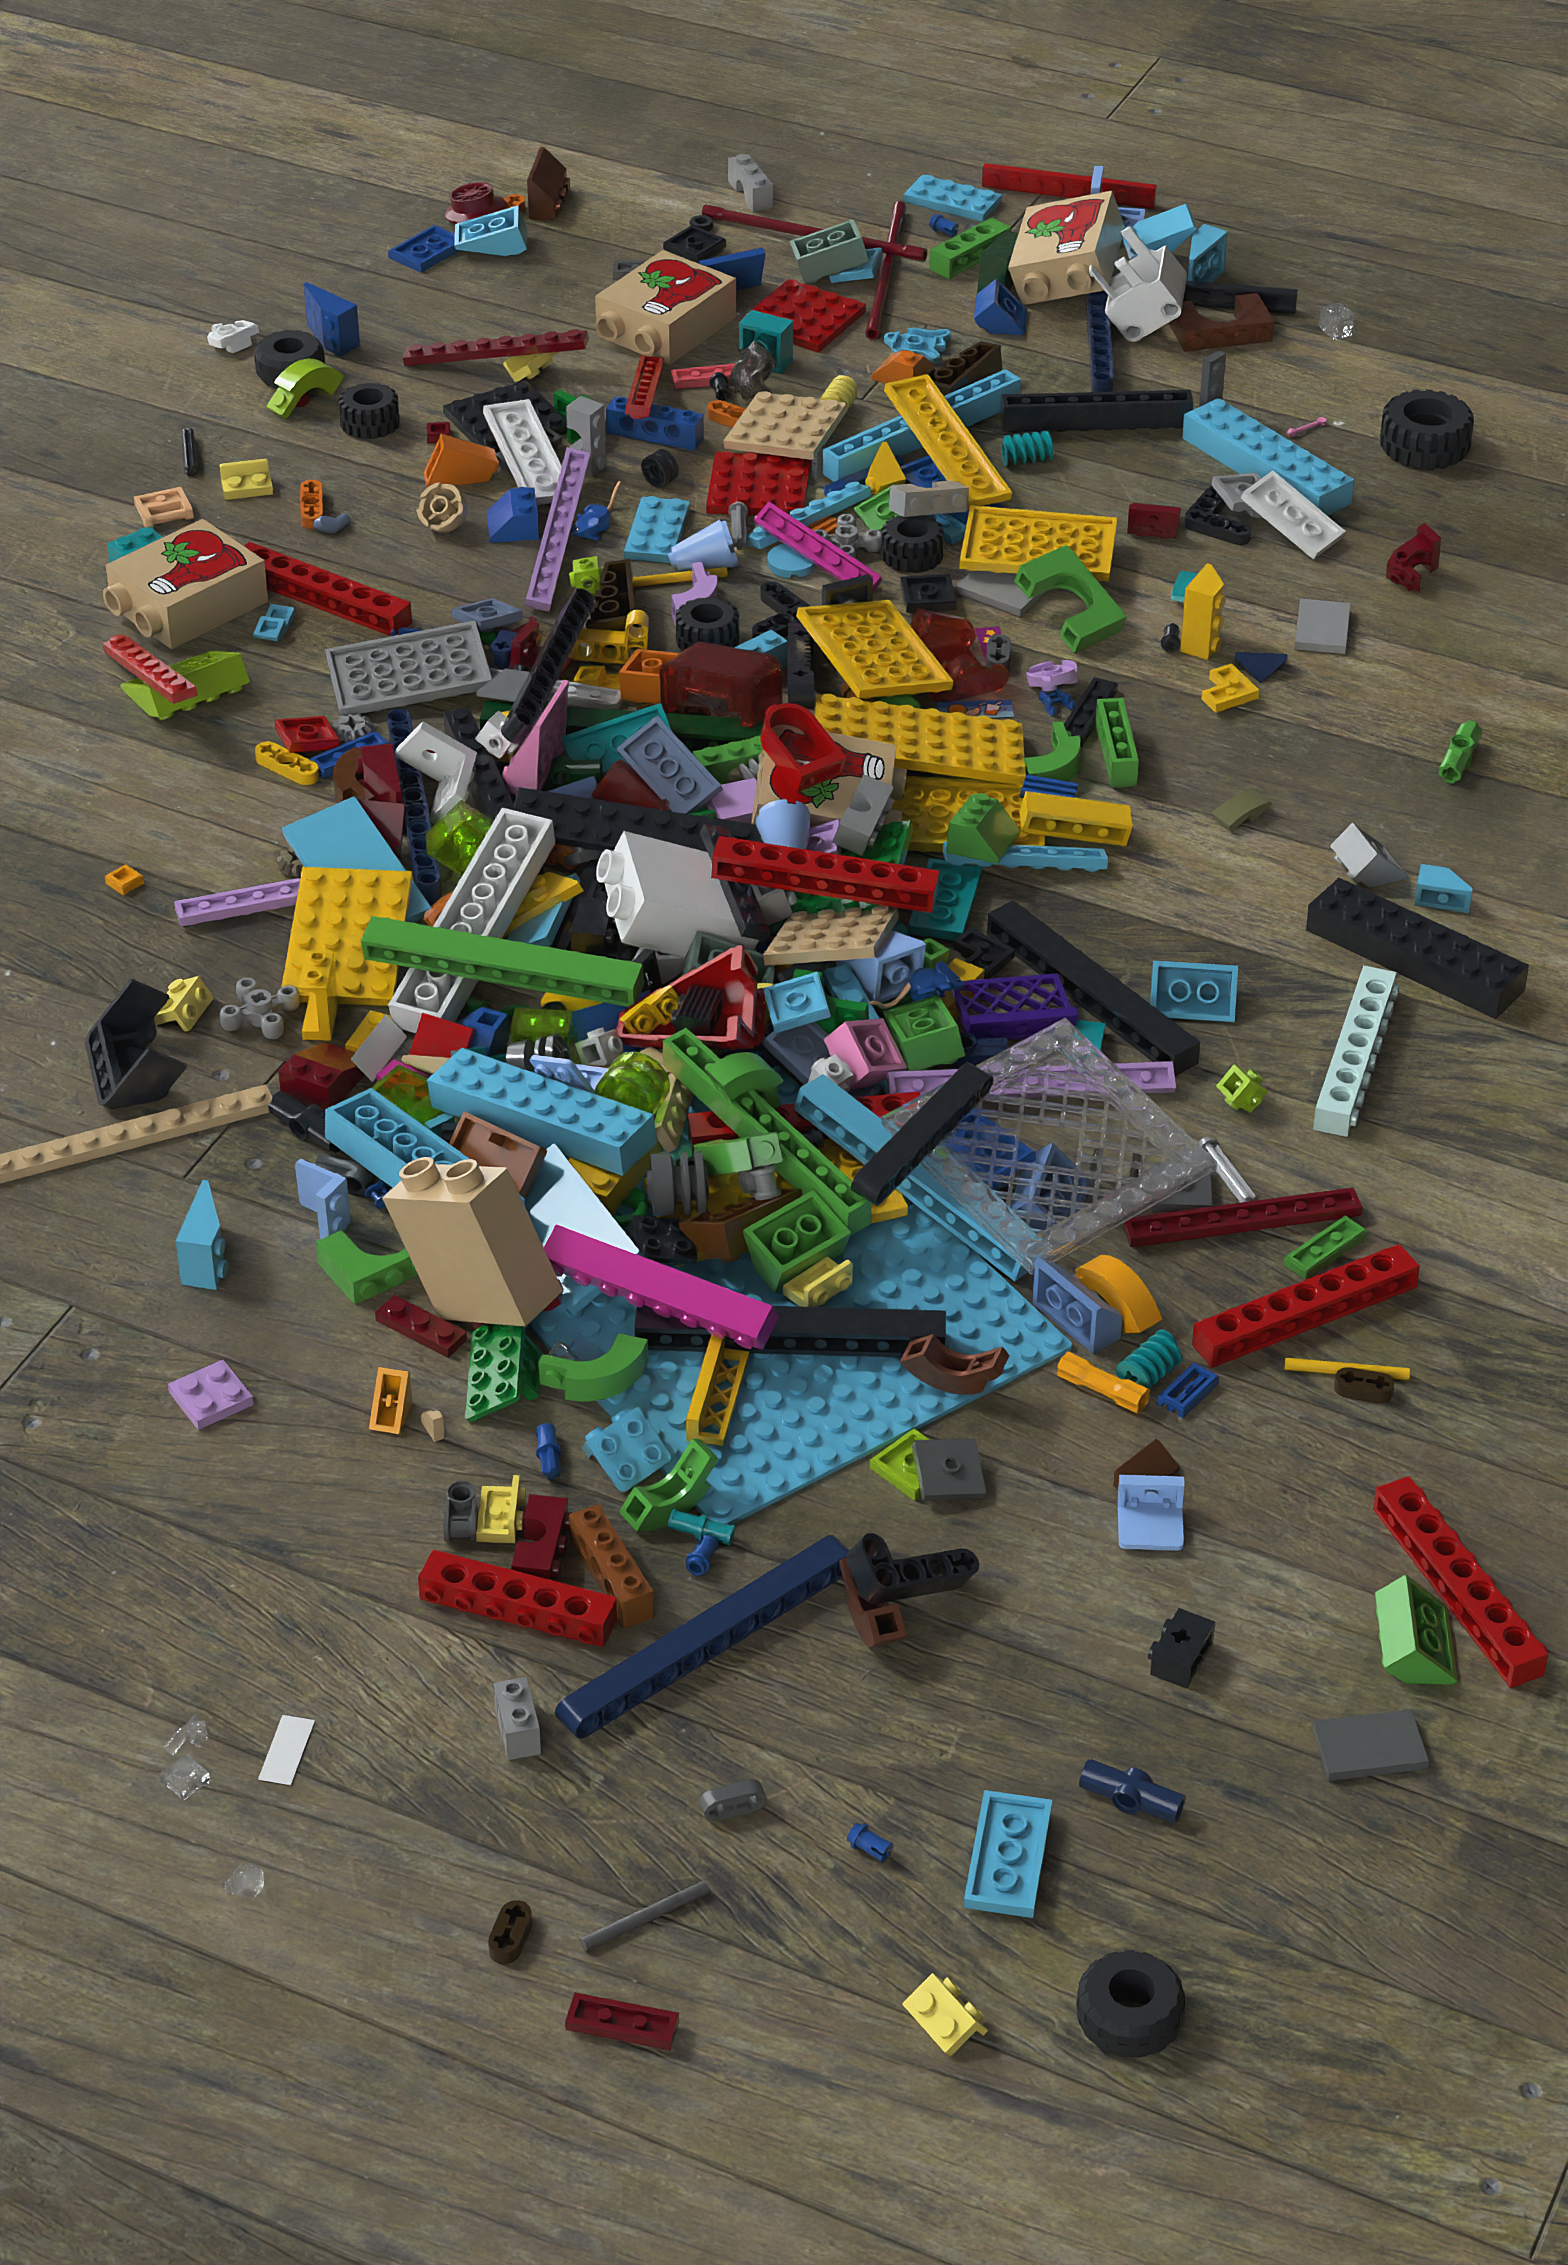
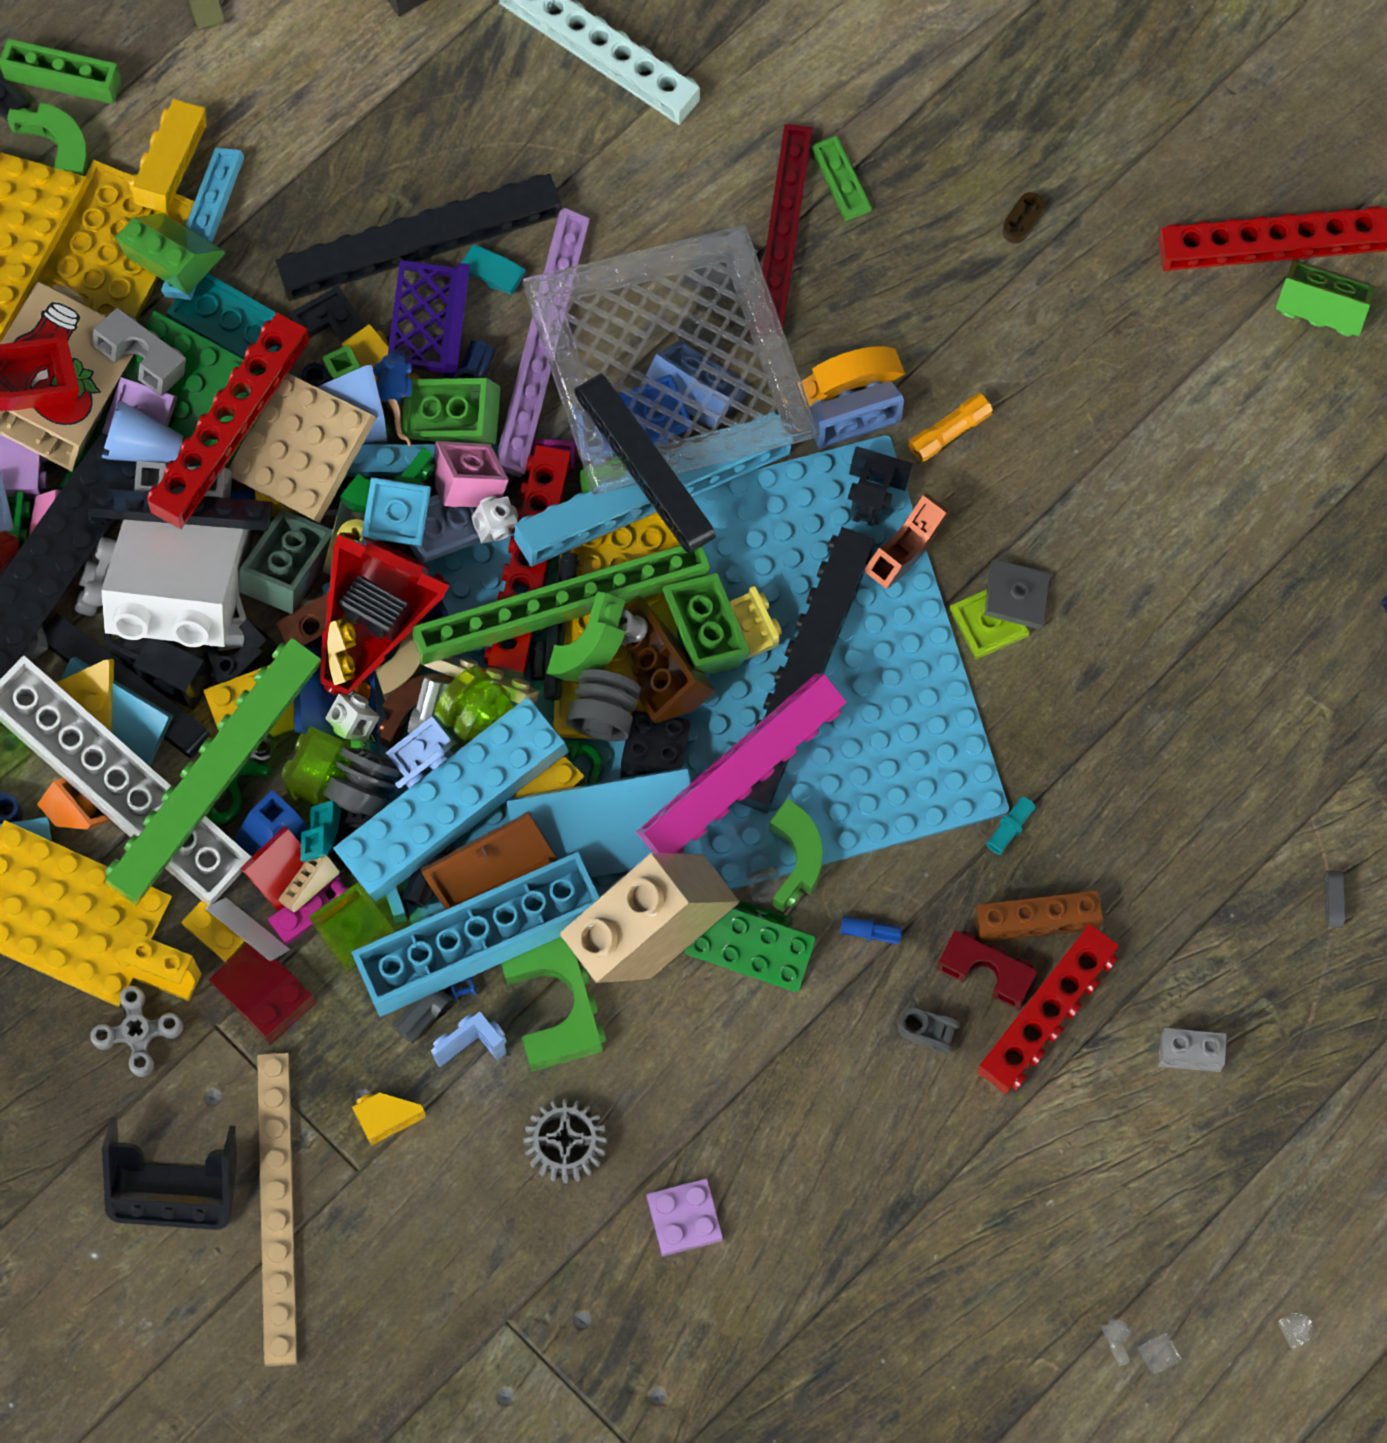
camera: 70 degrees left, 30 degrees up
(186, 1002) = (92, 1106): light yellow bracket -> none
(200, 1243) = (490, 1170): medium azure slope -> none
(235, 1172) = (385, 1115): none -> yellow slope
(255, 1291) = (579, 1141): none -> light grey gear
(286, 1750) = (1150, 1257): white sticker -> none
(302, 1119) = (332, 1028): black piece -> none
(391, 1400) = (765, 1054): light orange slope -> none
(421, 1326) = (659, 998): dark red plate -> none
(434, 1424) = (803, 1022): tan tile -> none
(500, 1513) = (937, 992): light yellow bracket -> none
(627, 1449) = (897, 861): medium azure bracket -> none
(681, 1489) = (969, 837): bright green arch -> none
(699, 1560) = (1044, 836): blue pin -> none
(702, 1638) = (1143, 862): dark blue beam -> none
(706, 1386) = (857, 769): yellow fence -> none
(743, 1073) = (507, 594): bright green arch -> none
(874, 1622) = (1169, 717): copper arch -> none
(886, 1580) = (1153, 683): black beam -> none
(1002, 1321) = (869, 497): none -> black tile
(1049, 786) = (116, 141): blue tile -> none
(1150, 1461) = (1066, 434): reddish brown slope -> none
(1150, 1512) = (1125, 450): light blue bracket -> none
(1151, 1360) = (943, 379): teal piece -> none
(1181, 1647) = (1278, 469): black brick -> none
(1192, 1393) = (967, 366): blue tile -> none
(1194, 990) = (461, 149): medium azure slope -> none
(1227, 1171) = (717, 220): light grey axle -> none
(1242, 1088) = (625, 170): lime brick -> none
(1305, 1305) = (903, 130): red brick -> none
(1332, 1367) = (997, 223): yellow bar -> none

